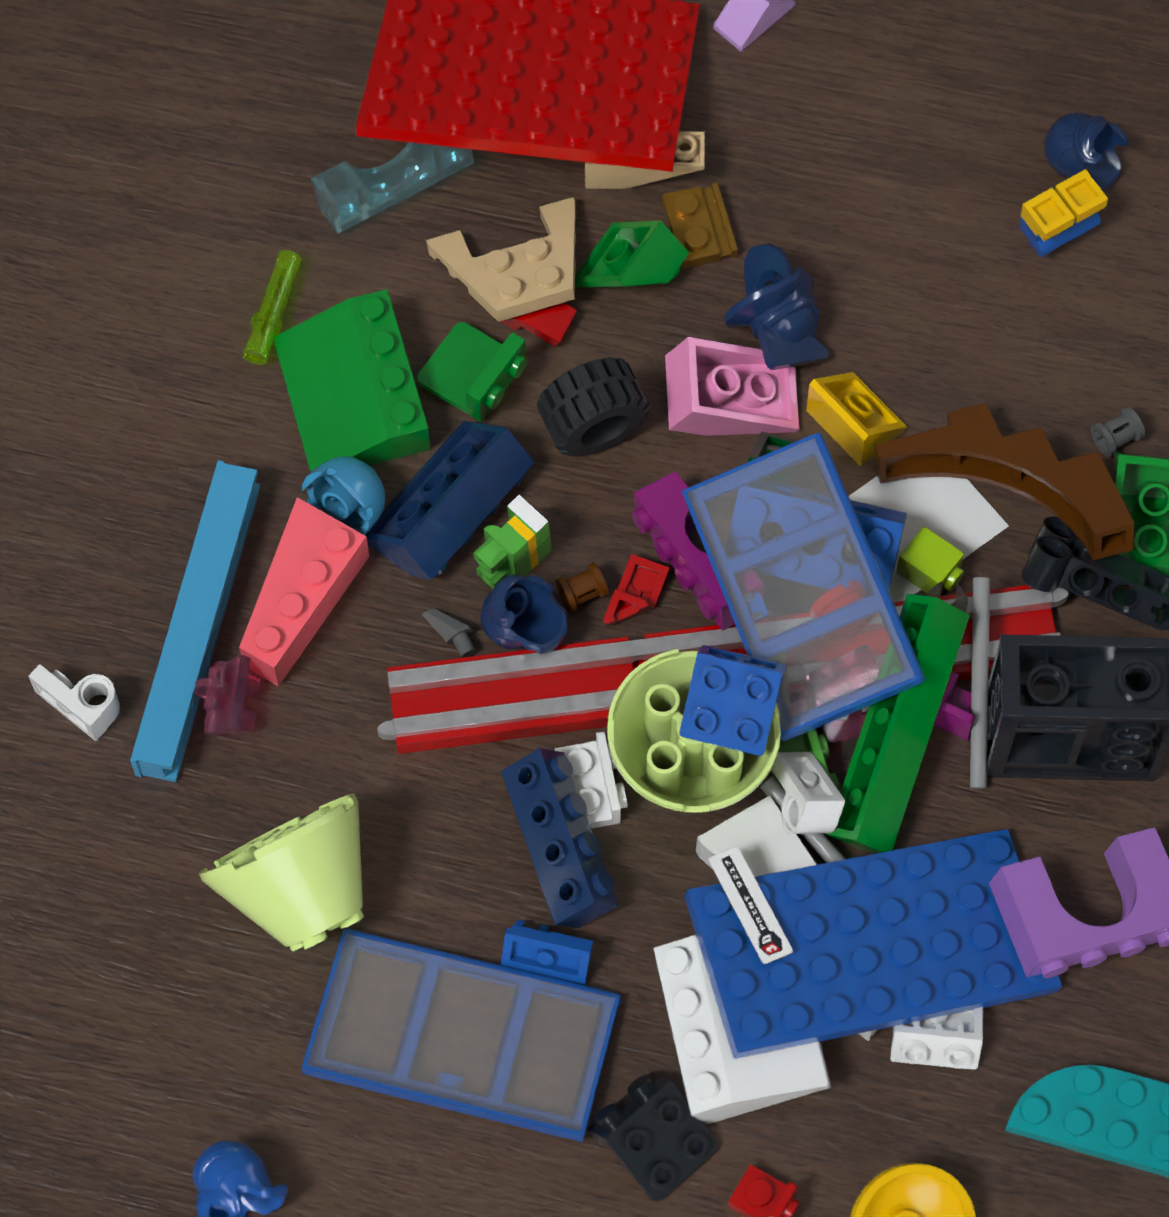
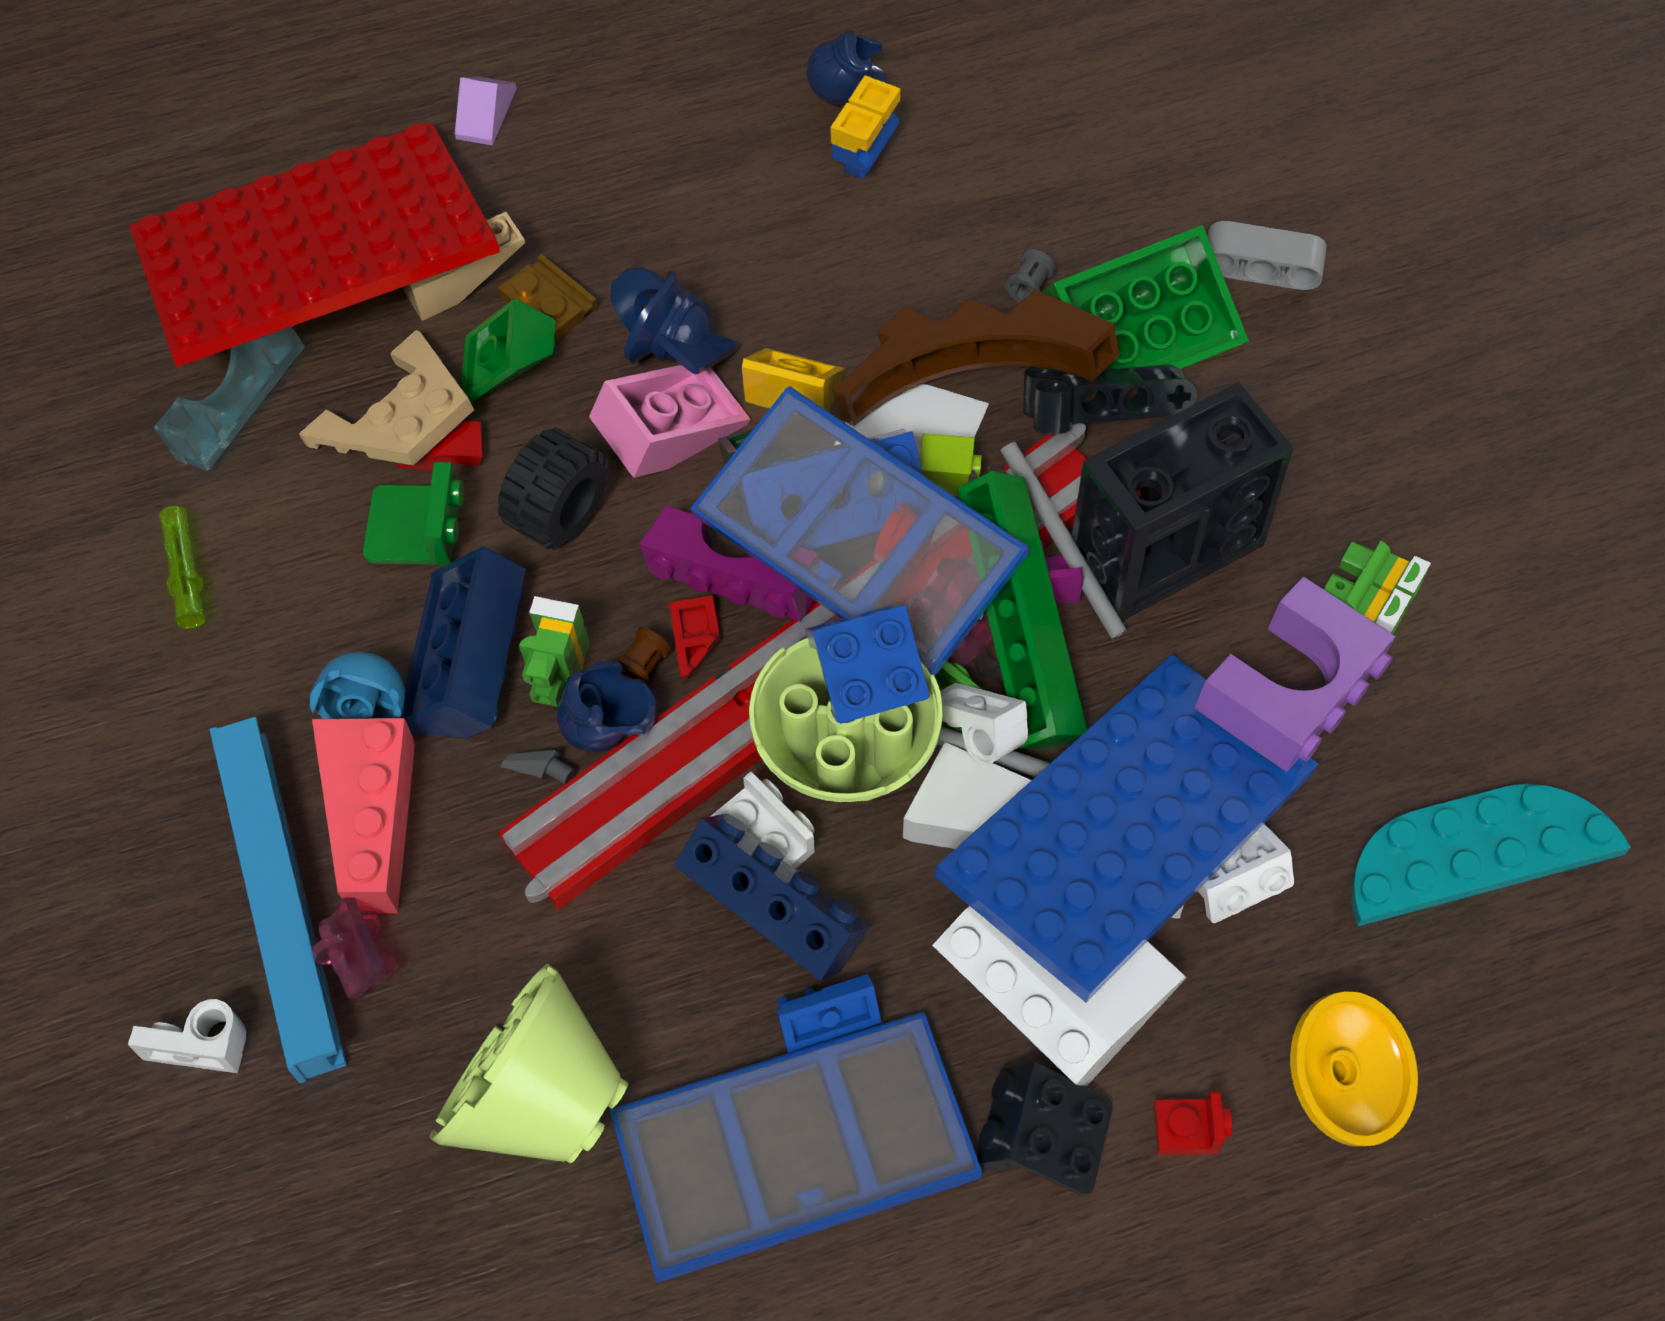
camera: 30 degrees left, 5 degrees down
(352, 384) = (304, 591): green slope -> none
(750, 905) = (1005, 846): white sticker -> none

